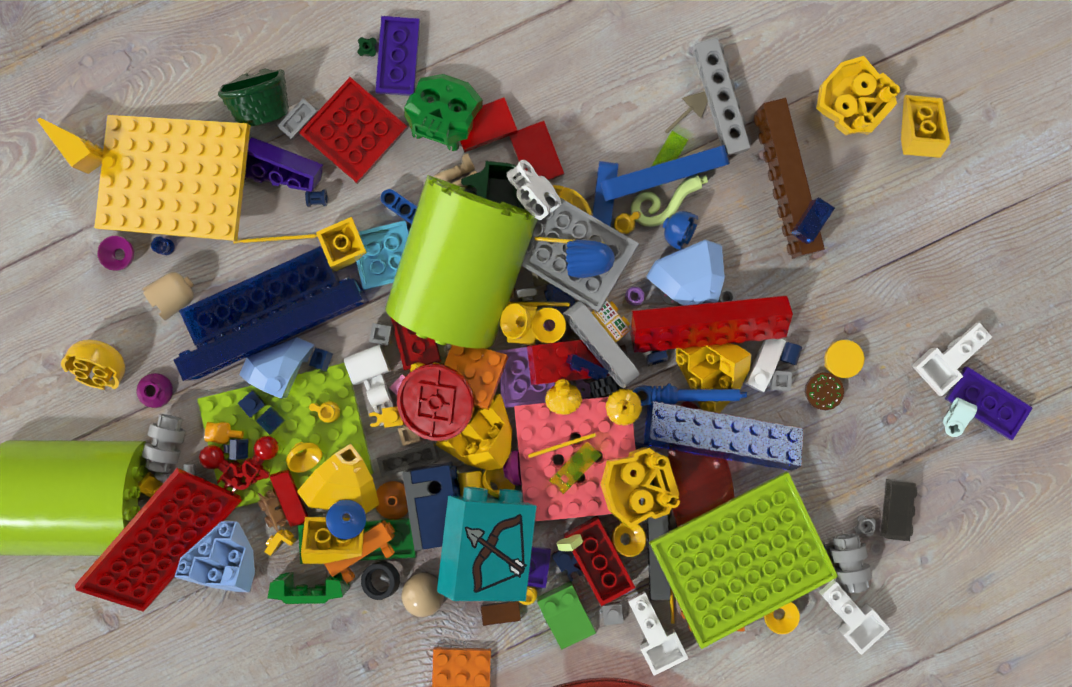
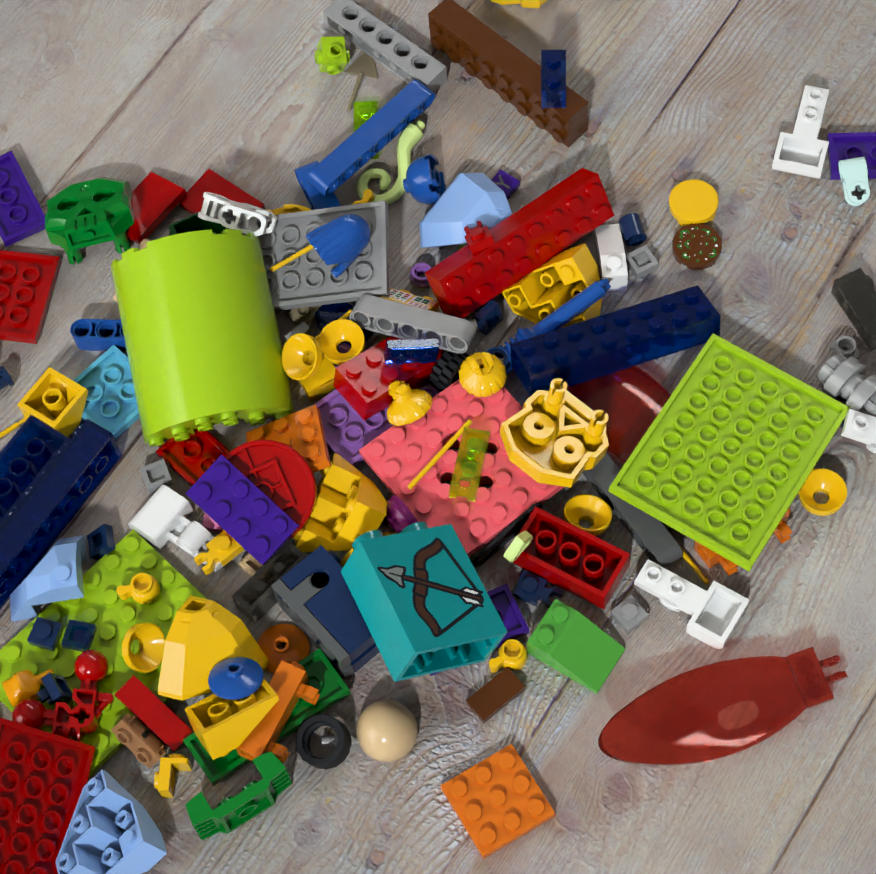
camera: 25 degrees left, 25 degrees down
(414, 407) = (242, 510): none -> dark purple plate
(558, 521) = (475, 563): none -> black piece
(679, 84) = (332, 55): none -> lime brick
(683, 310) = (478, 237): none -> red plate
(731, 262) = (506, 183): none -> dark purple tile

